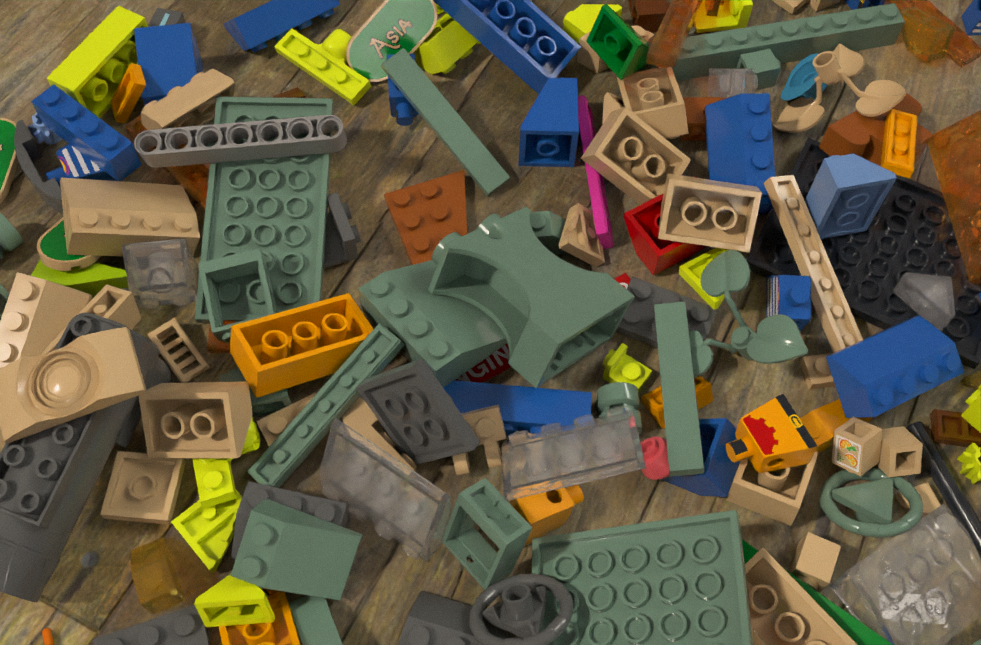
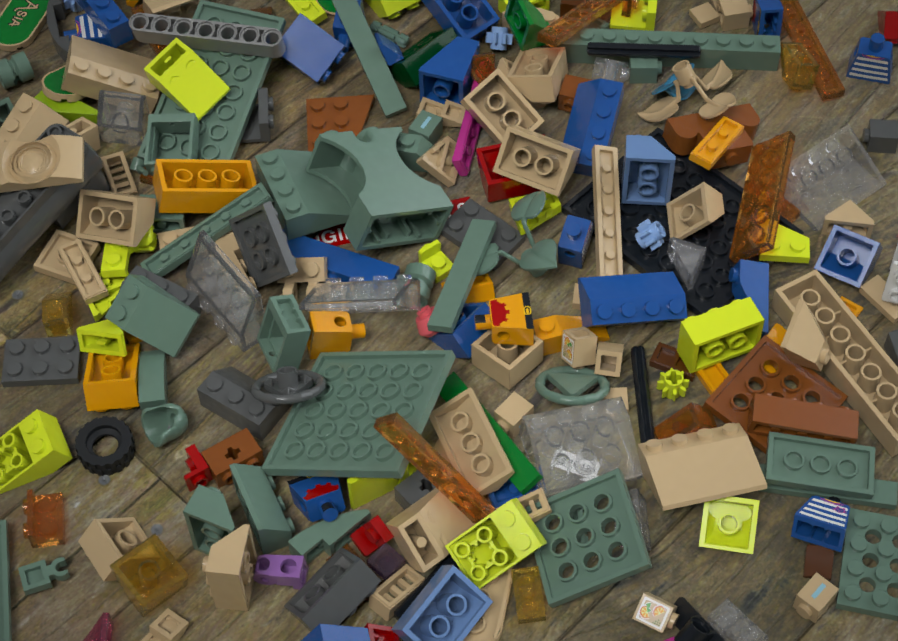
camera: 20 degrees right, 5 degrees down
(174, 507) = (83, 271): none -> tan tile
(200, 331) = (138, 165): none -> sand green hand
(232, 204) = (186, 79): none -> neon yellow slope
(374, 131) = (311, 49): none -> blue slope
(456, 92) = (390, 33): none -> sand green axle
(468, 113) = (389, 49): none -> blue slope
(504, 109) = (407, 70): none -> dark green slope
(545, 195) = (428, 126): none -> sand green brick
(559, 175) = (450, 111): none -> tan slope
(584, 69) = (499, 38): none -> light blue gear
(591, 112) = (482, 66): none -> clear orange bracket
(758, 50) = (643, 50): none -> black axle
(872, 274) = (650, 234): none -> light blue gear
(907, 235) = (694, 210): none -> tan slope

